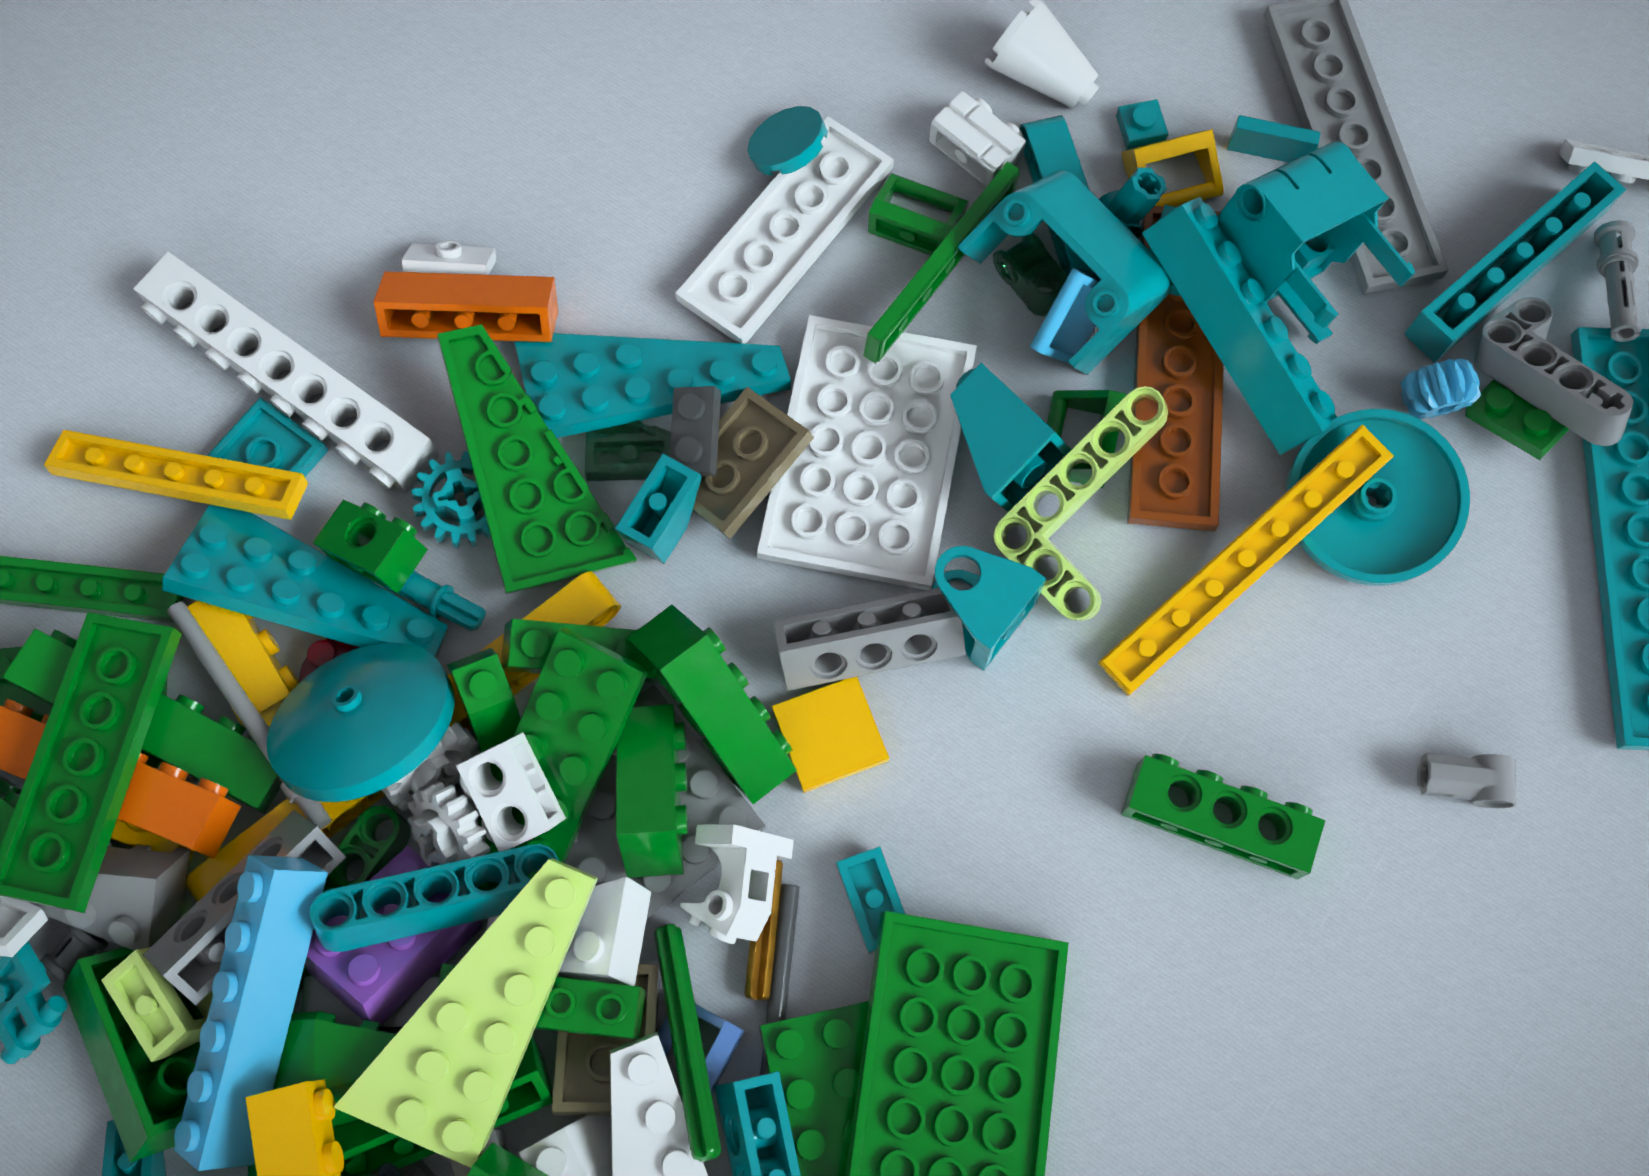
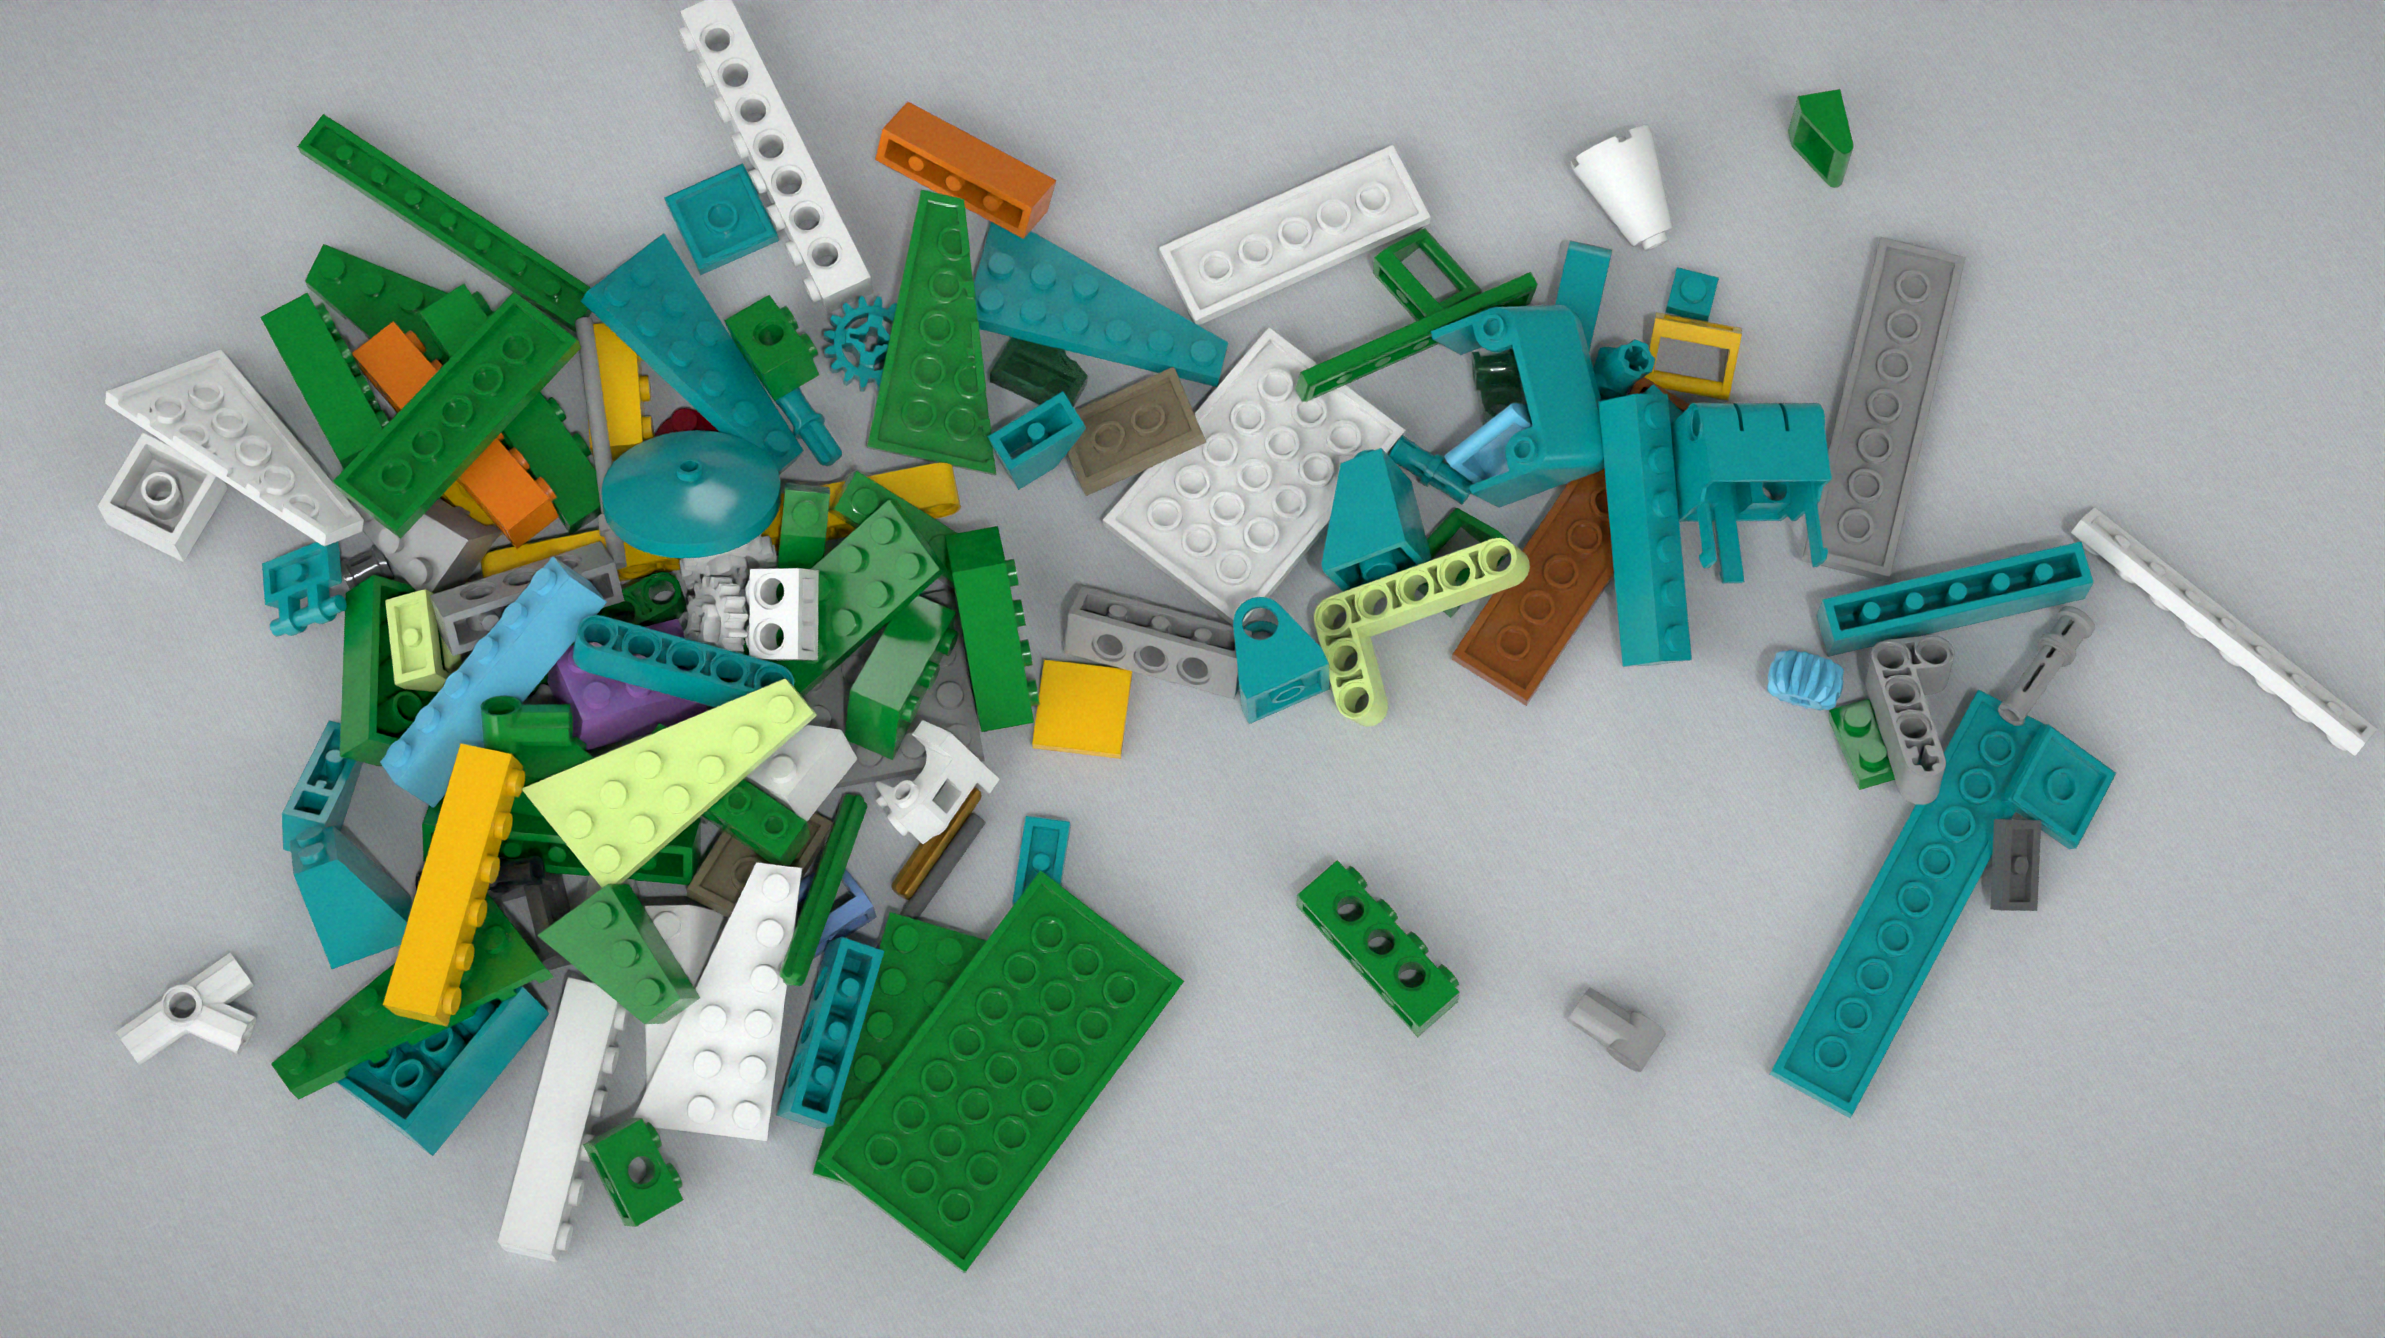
camera: 30 degrees right, 0 degrees up
(177, 474) = (638, 200): yellow plate -> none
(290, 1048) = (511, 726): none -> green piece
(448, 258) = (972, 115): white plate -> none
(696, 428) = (1106, 383): dark grey plate -> none
(787, 140) = (1340, 151): teal tile -> none
(976, 137) = (1521, 233): white brick -> none
(1020, 368) = (1431, 469): none -> teal pin
(1245, 560) = (1531, 741): yellow tile -> none
(1271, 139) = (1803, 372): teal tile -> none
(1418, 498) = (1673, 706): teal dish -> none

